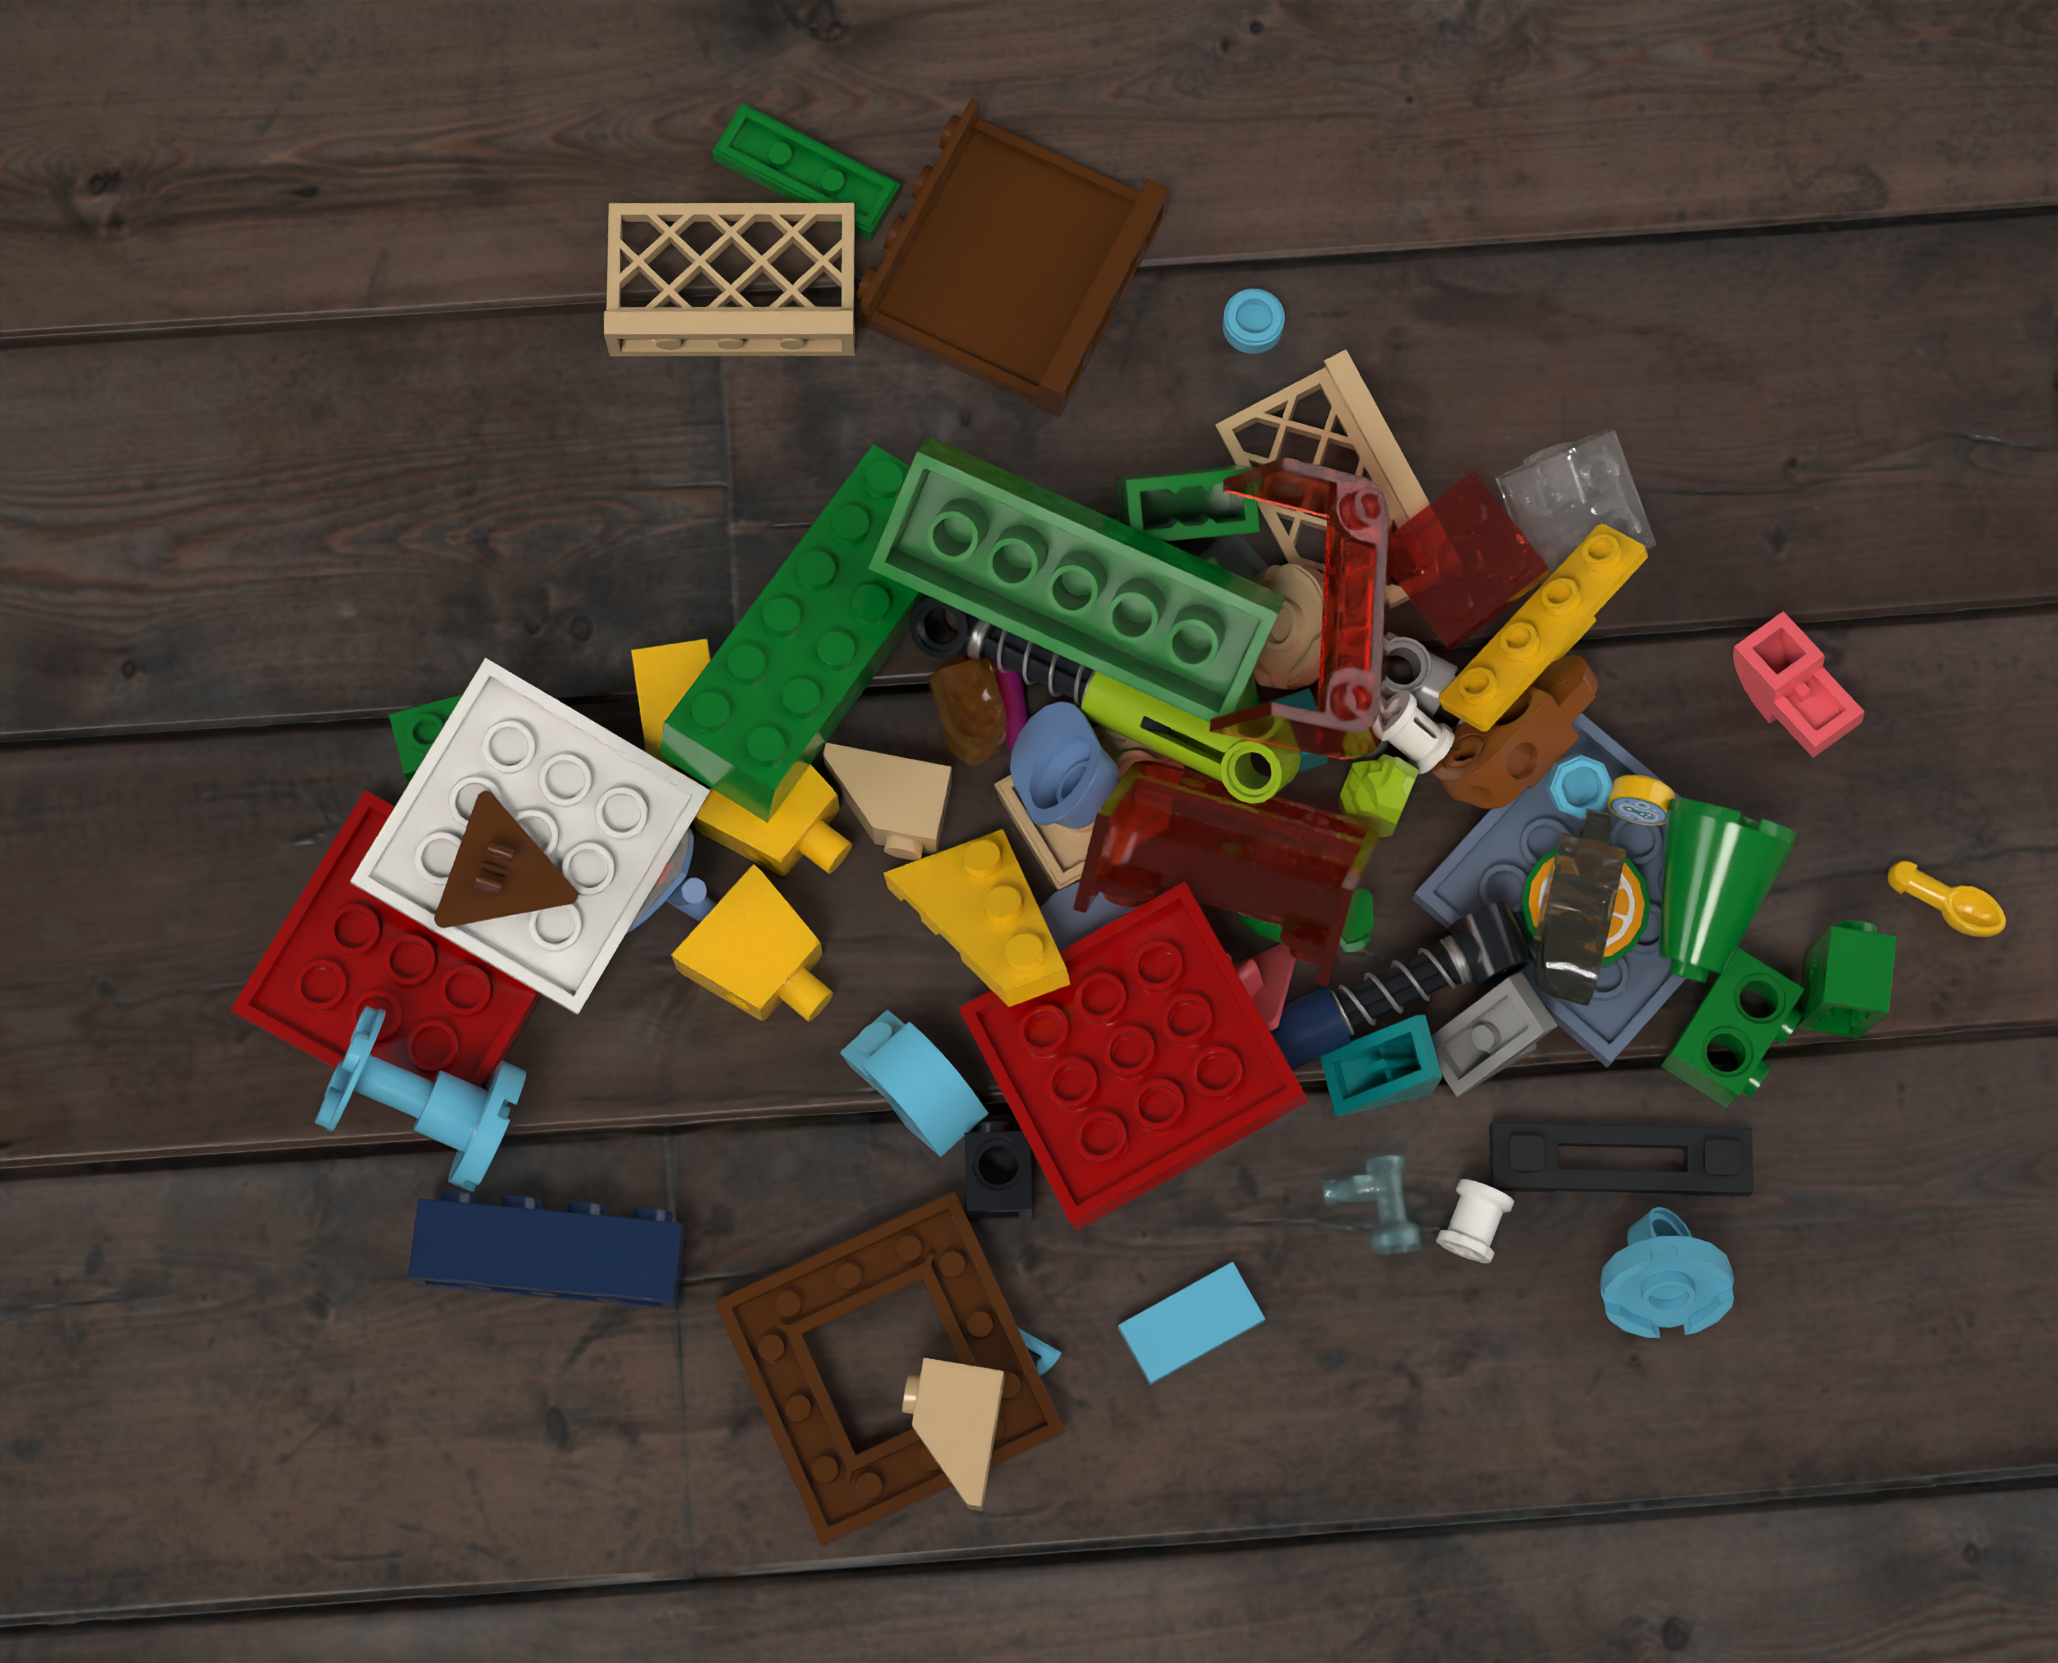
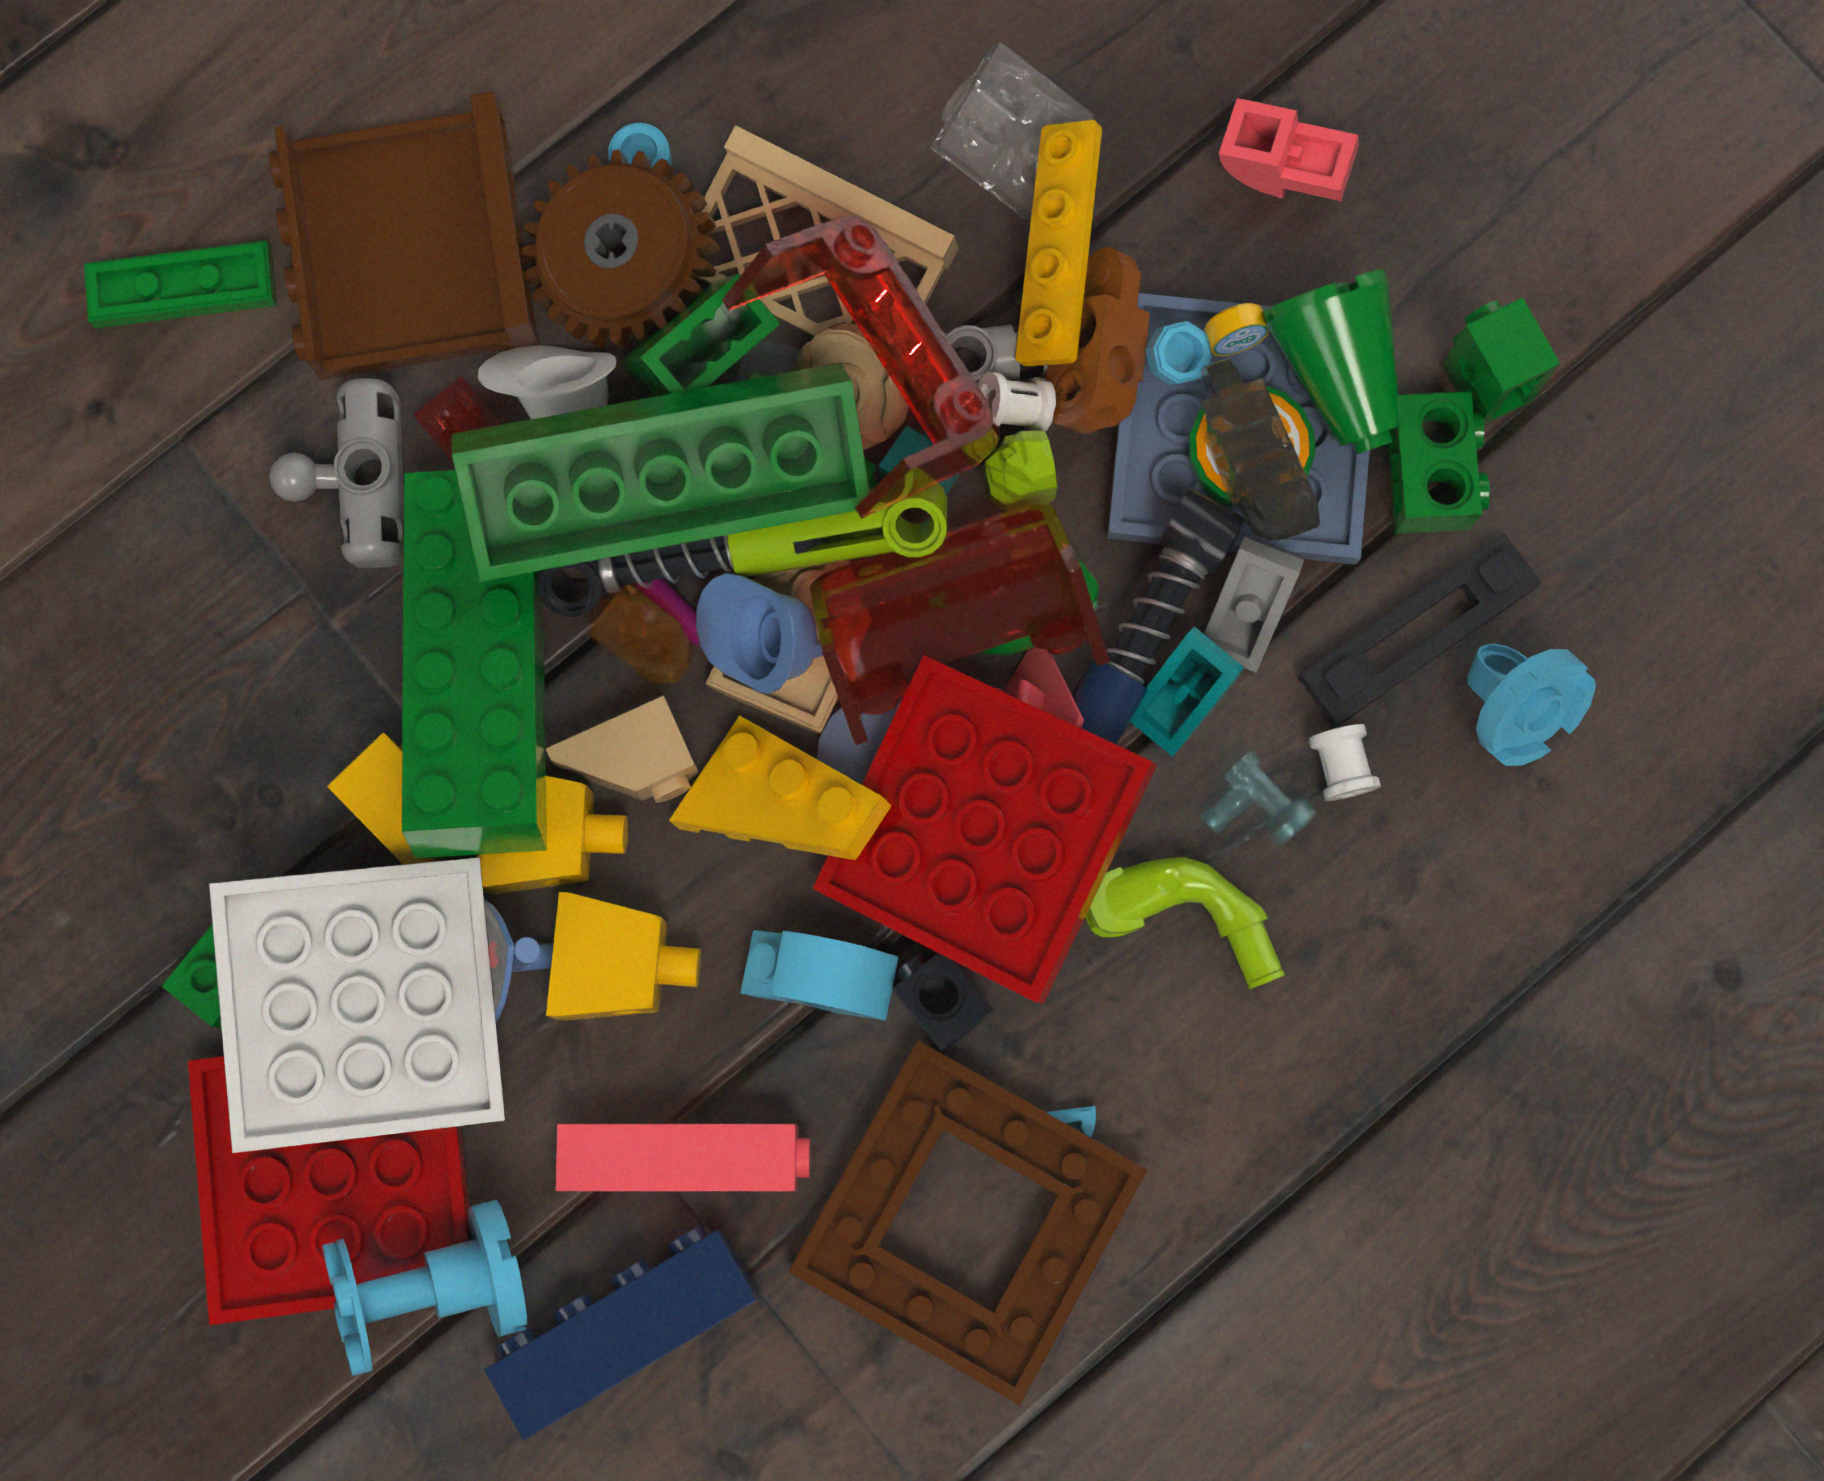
camera: 30 degrees left, 5 degrees up
(499, 871) = (352, 1053): reddish brown piece -> none
(696, 1148) = (681, 1157): none -> coral brick
(724, 329) = (200, 466): tan fence -> none
(858, 394) = (360, 439): none -> light grey piece
(951, 423) = (454, 412): none -> clear red tile
(957, 1421) = (1060, 1229): tan slope -> none
(1046, 450) = (550, 378): none -> white piece
(1169, 343) = (594, 214): none -> reddish brown gear
(1191, 1323) = (1180, 1007): medium azure tile -> none
(1208, 1200) = (1152, 886): none -> lime piece
(1464, 561) = (958, 232): clear red plate -> none
(1962, 907) = (1539, 240): yellow piece -> none

